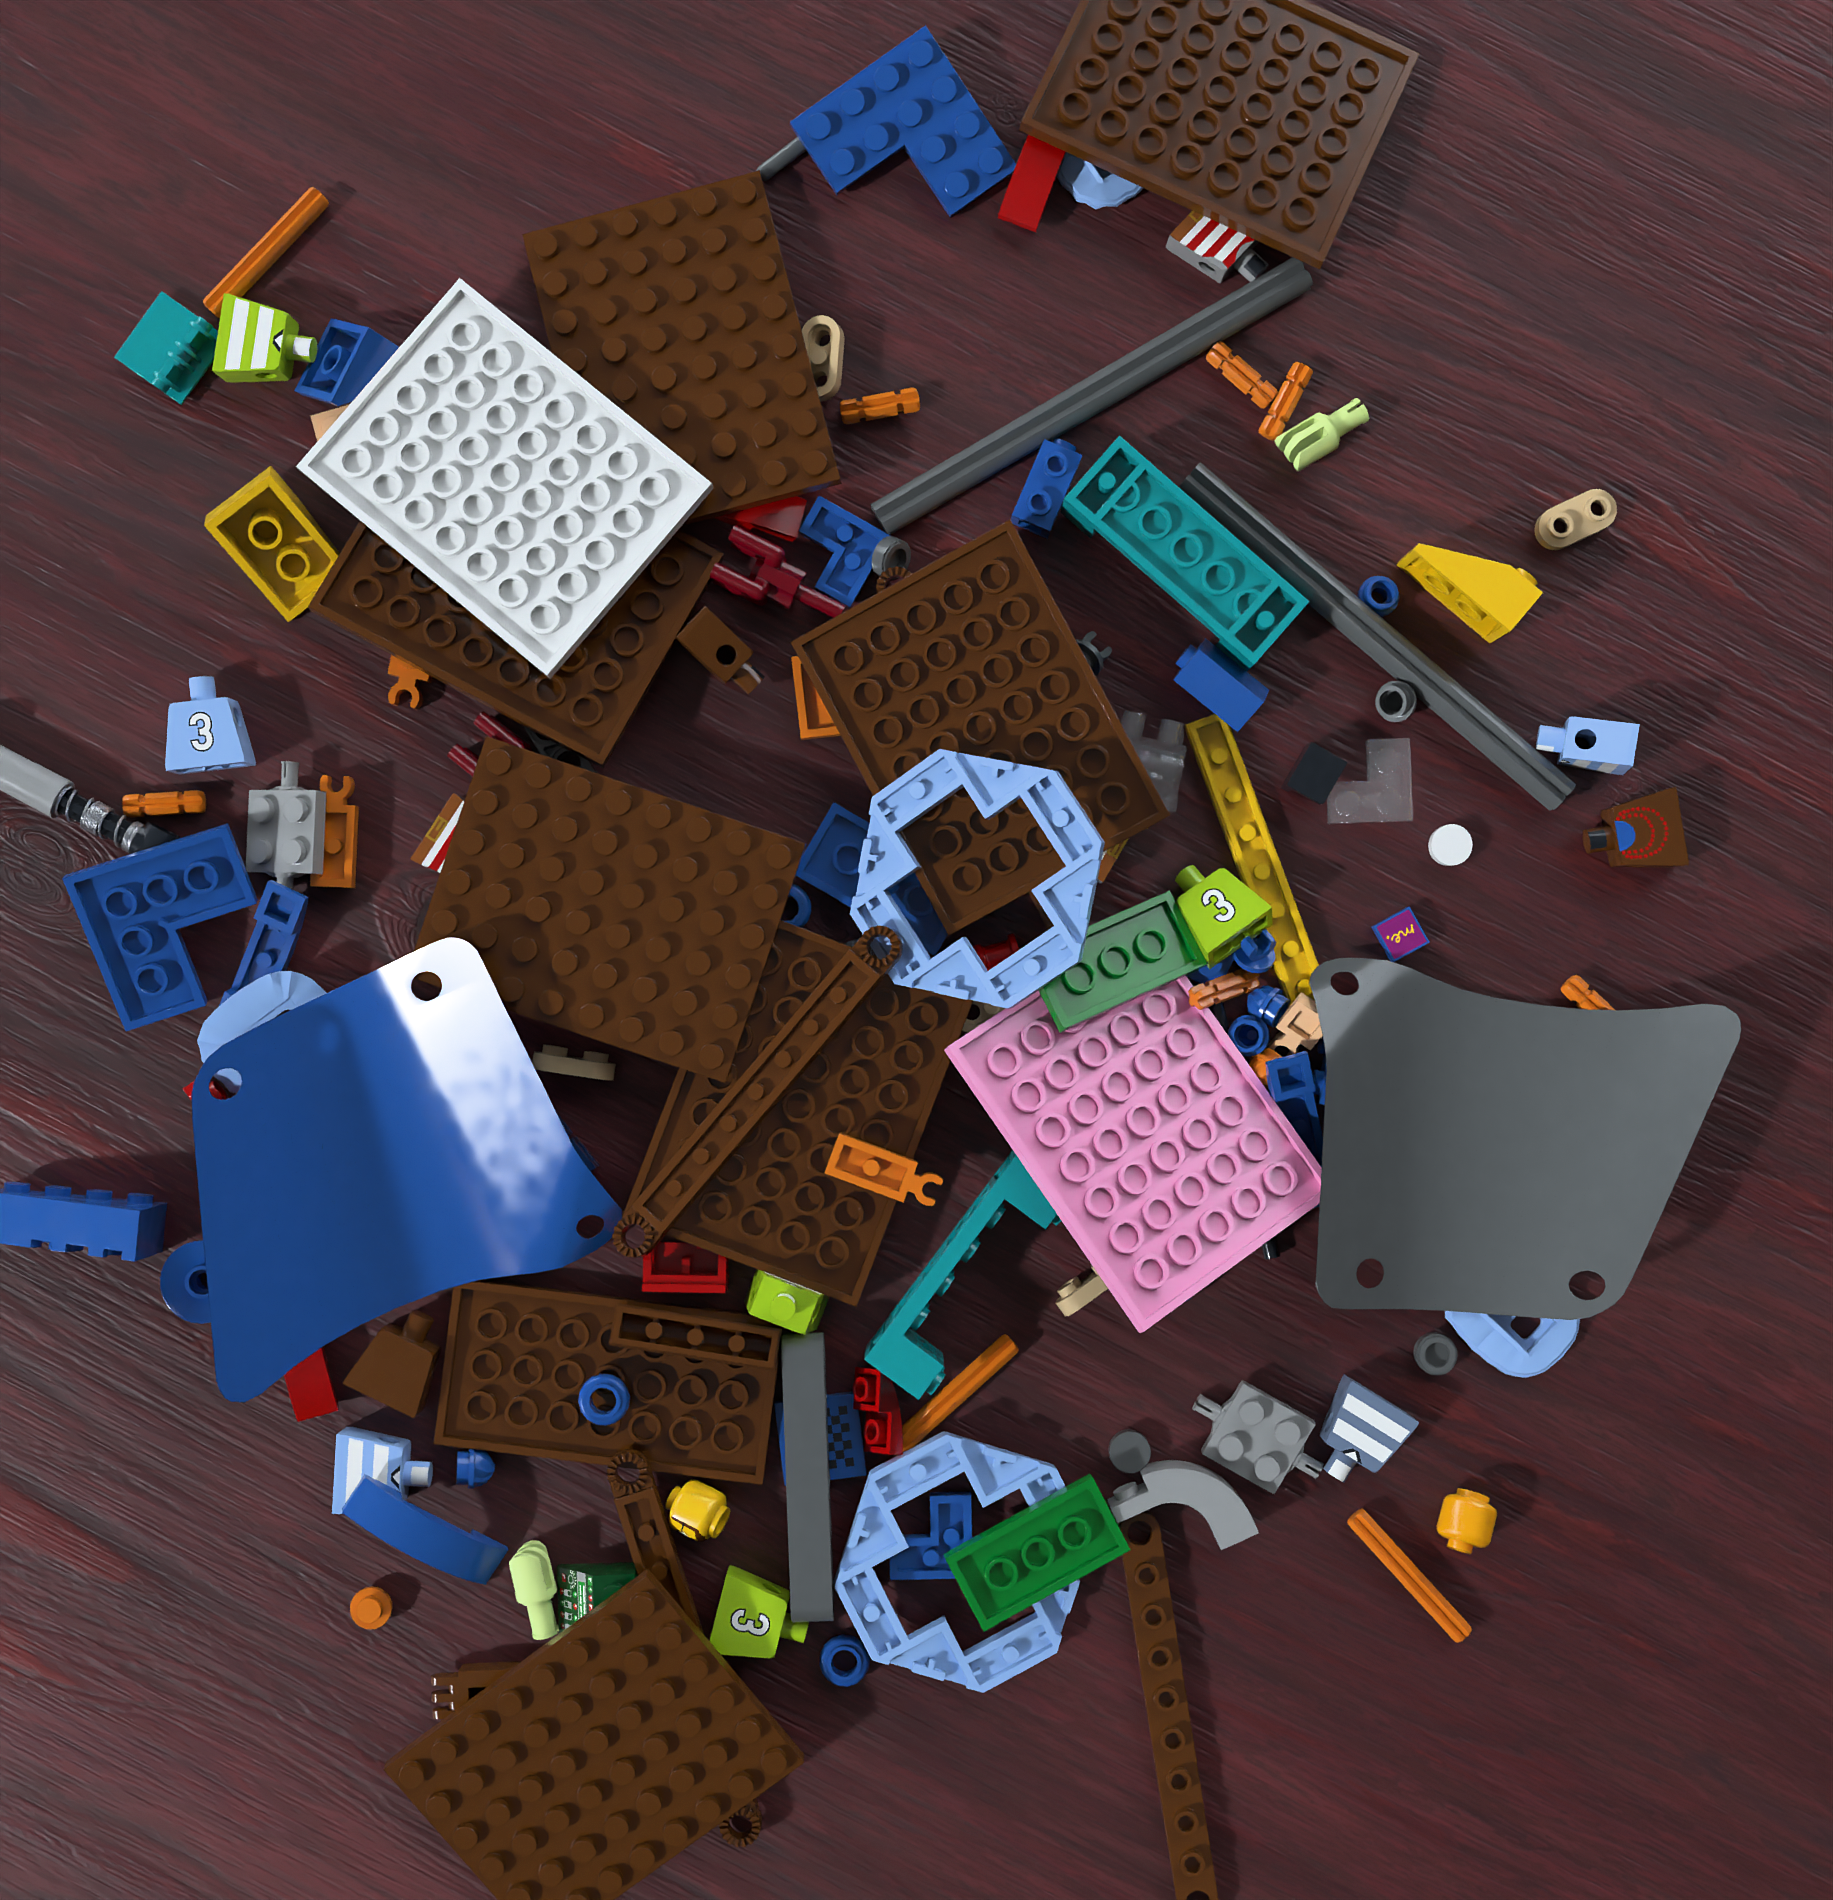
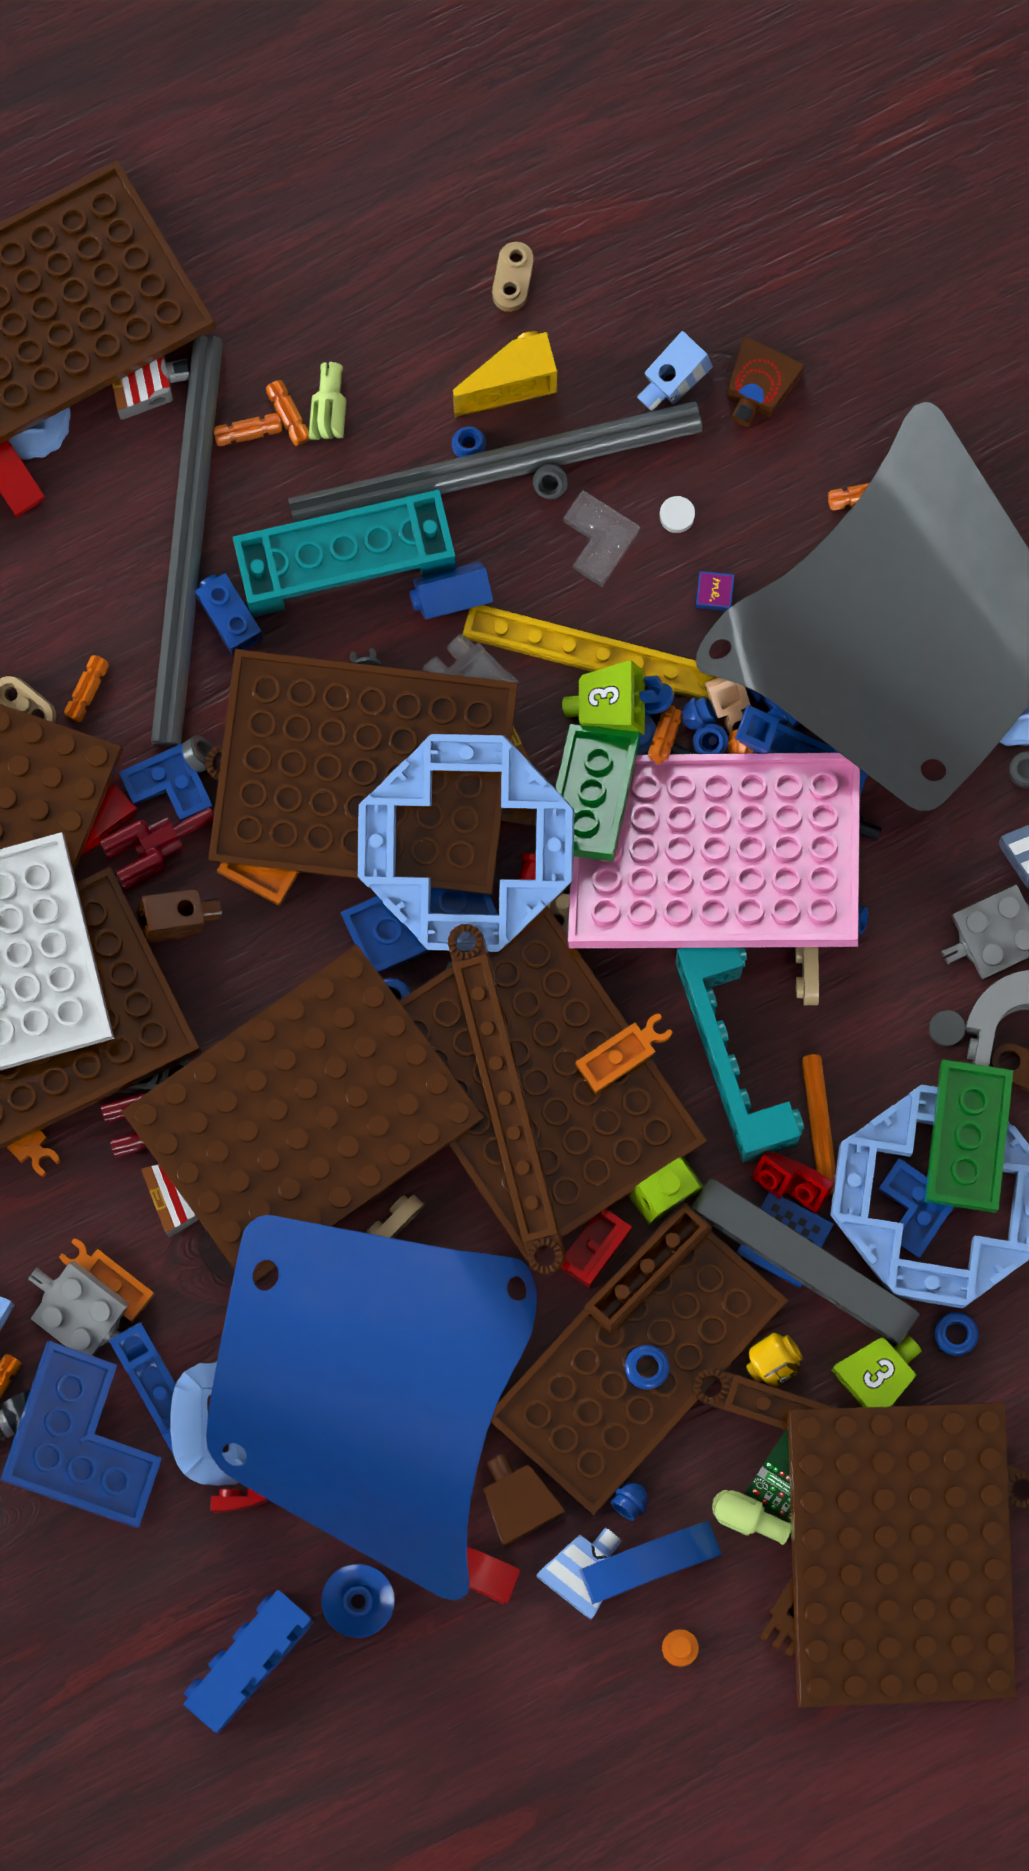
camera: 55 degrees left, 10 degrees down
(1314, 773) = (559, 570): black panel -> none

